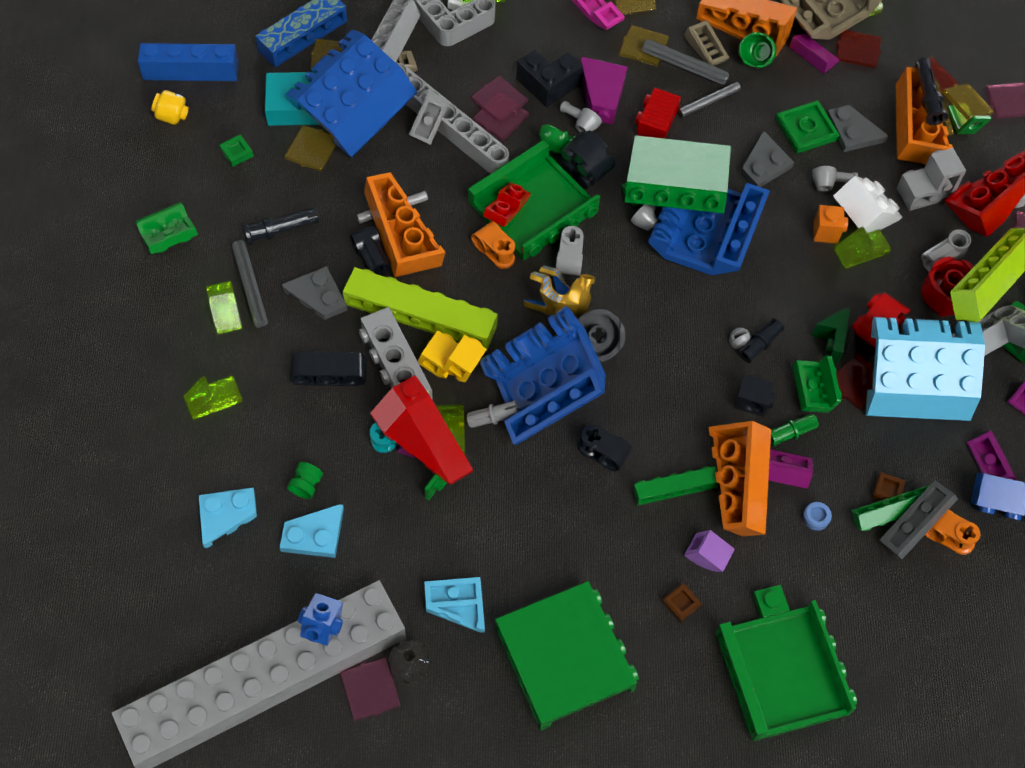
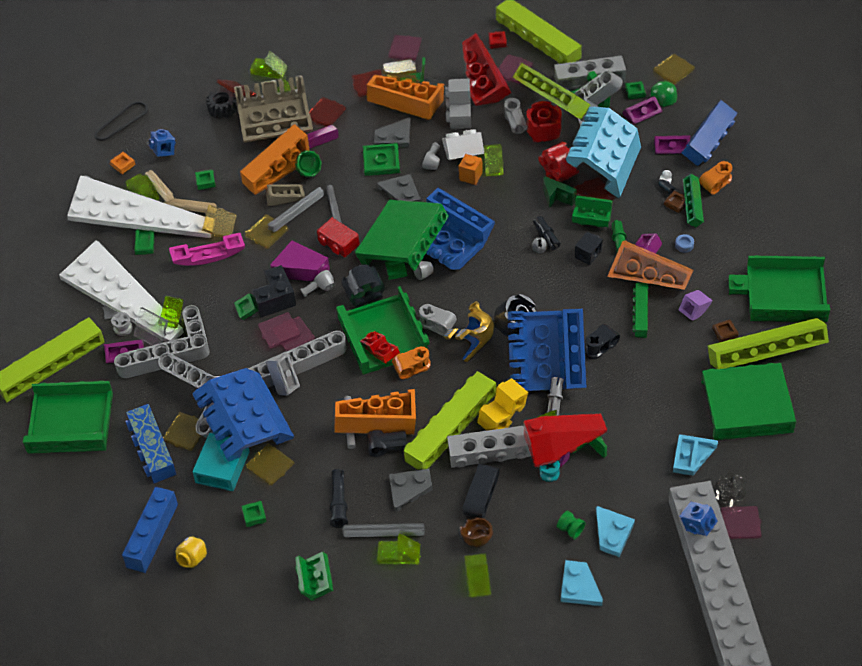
camera: 65 degrees left, 10 degrees down
(265, 377) = (476, 532): none -> reddish brown hair
(515, 54) = (246, 306): none -> green plate
(554, 137) = (337, 299): green hair -> none
(670, 662) = (768, 343): none -> lime brick
(916, 465) = (664, 182): none -> black arm
(918, 519) = (708, 188): dark grey plate -> none
(932, 99) = (402, 78): black pin -> none

